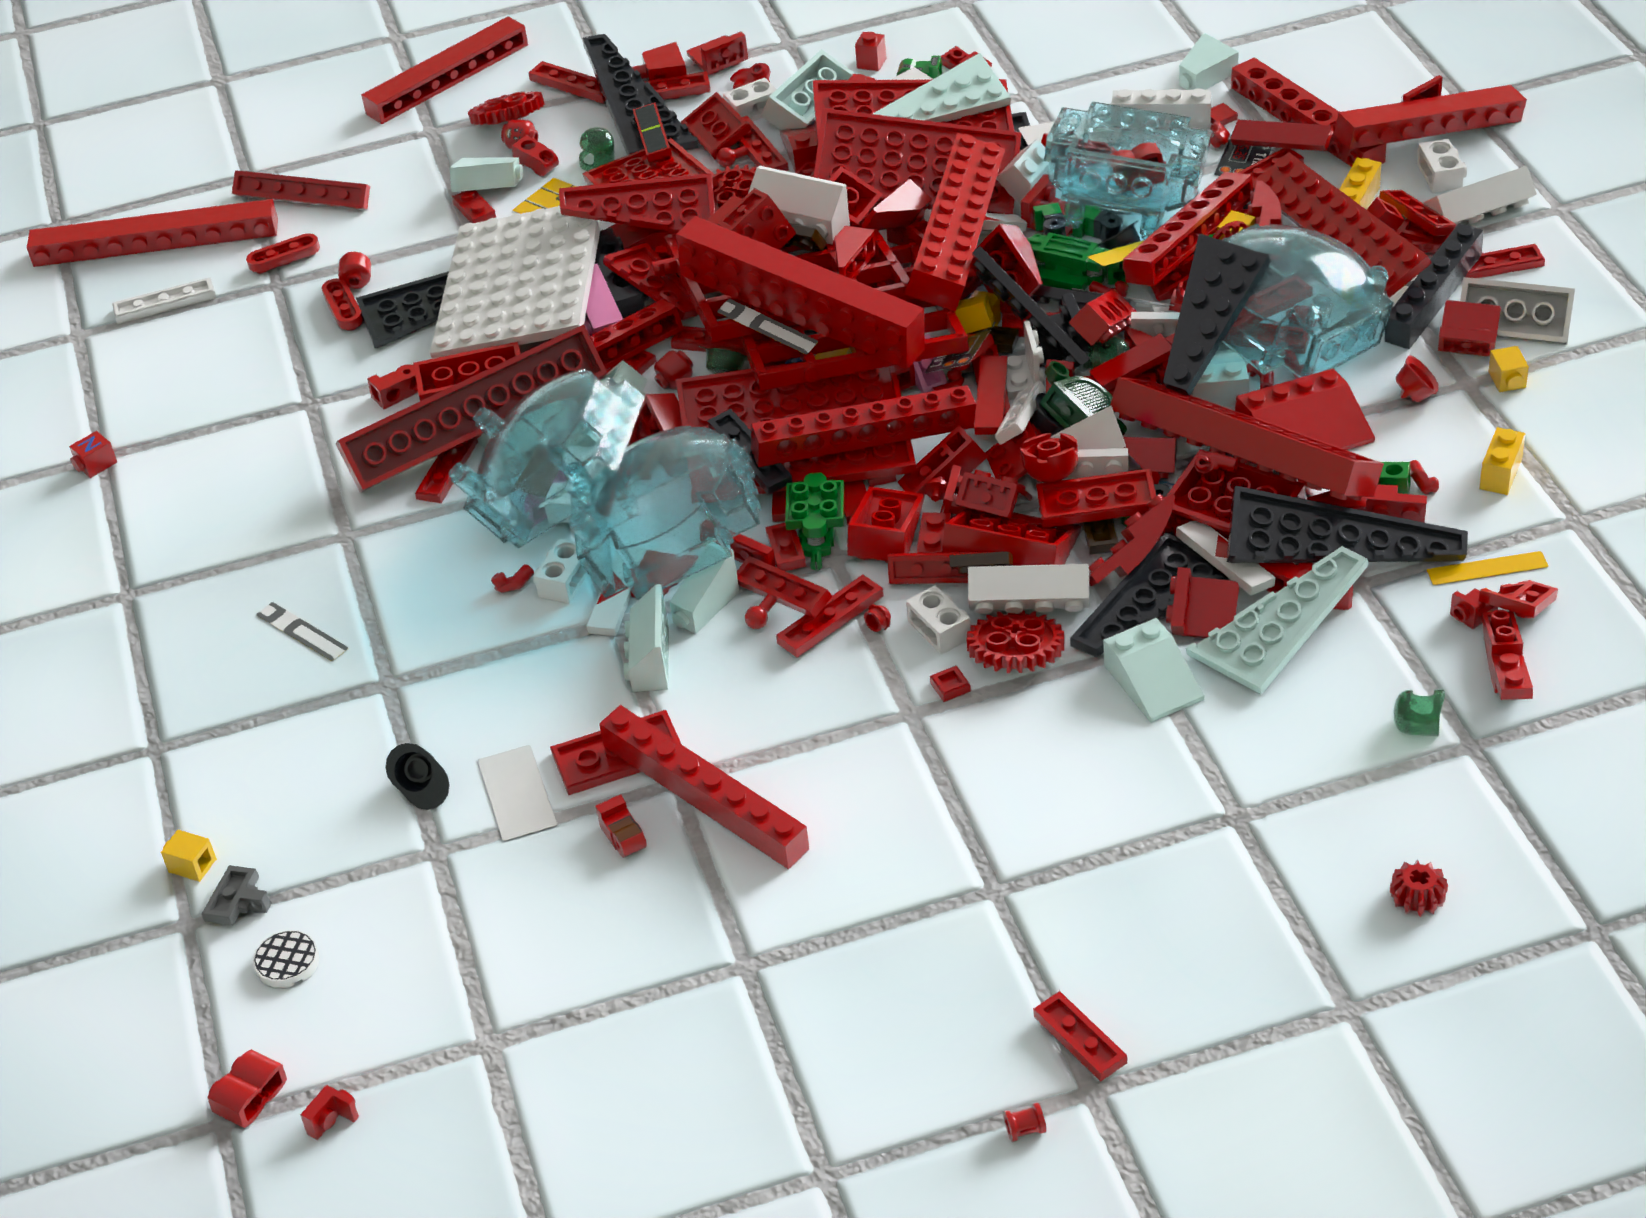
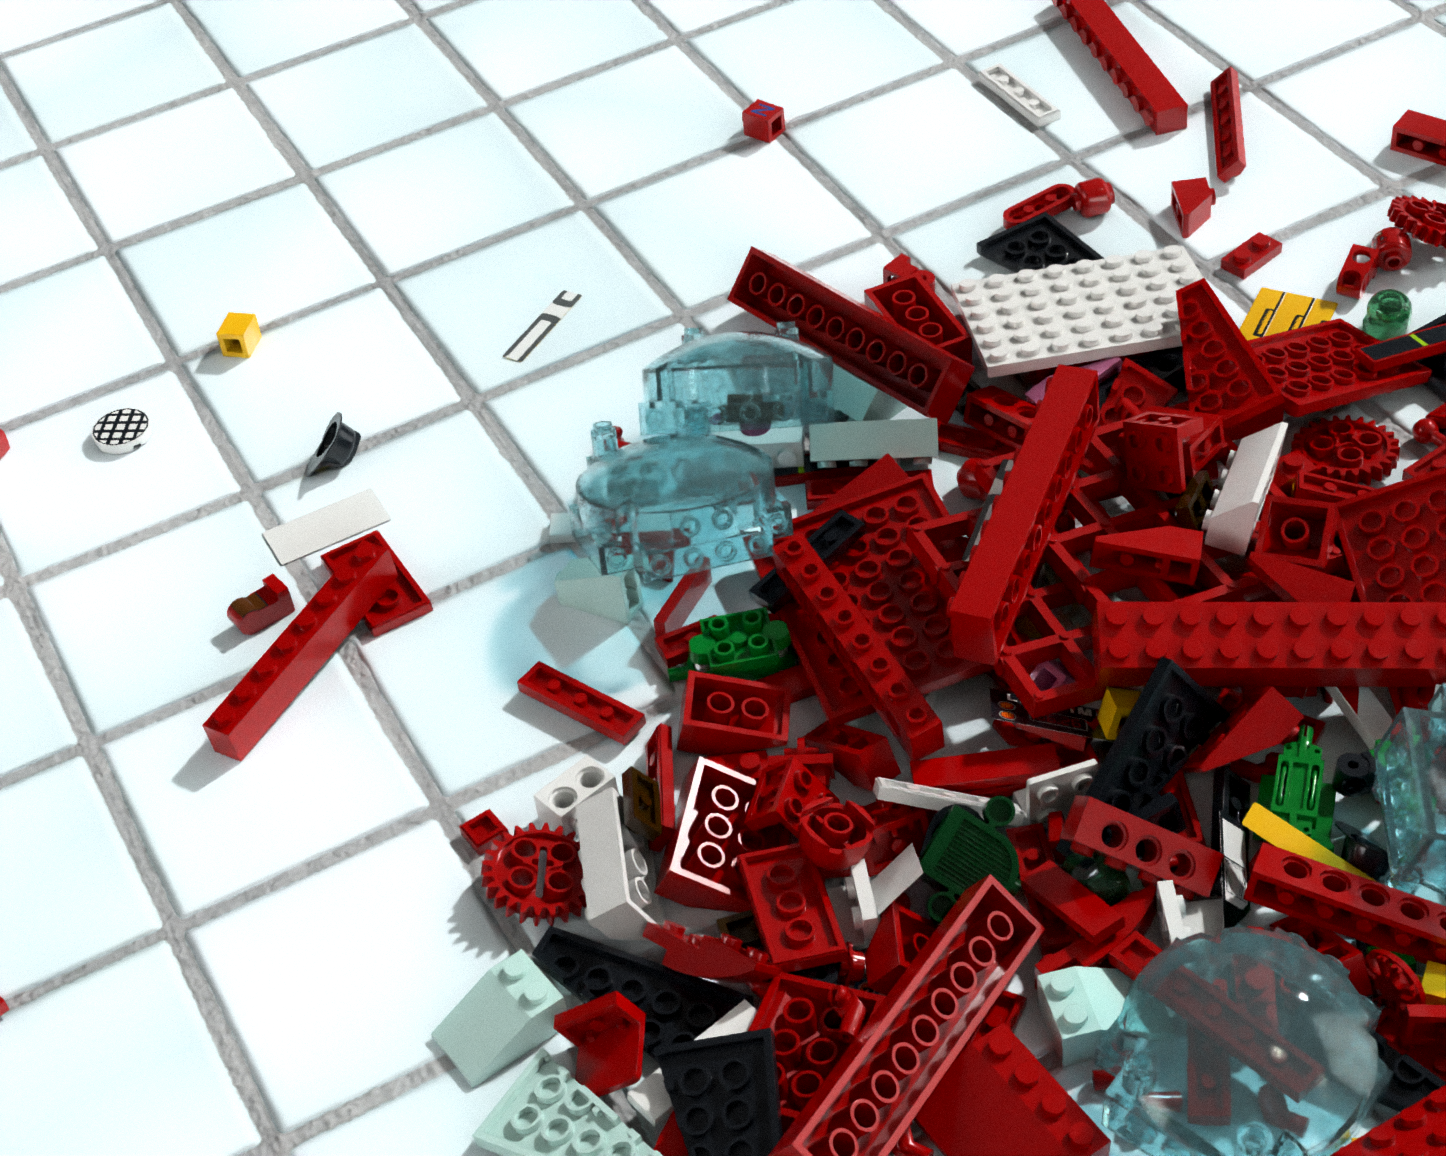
camera: 80 degrees right, 0 degrees up
(234, 895) = (192, 377): dark grey hinge -> none
(283, 253) = (1115, 144): red plate -> none
(397, 223) = (1191, 204): none -> red slope
(485, 173) = (1297, 239): light aqua slope -> none
(647, 643) = (514, 565): light aqua slope -> none
(781, 588) = (598, 654): red plate -> none
(877, 618) = (580, 744): red plate -> none
(1214, 296) = (1153, 940): black wing -> none

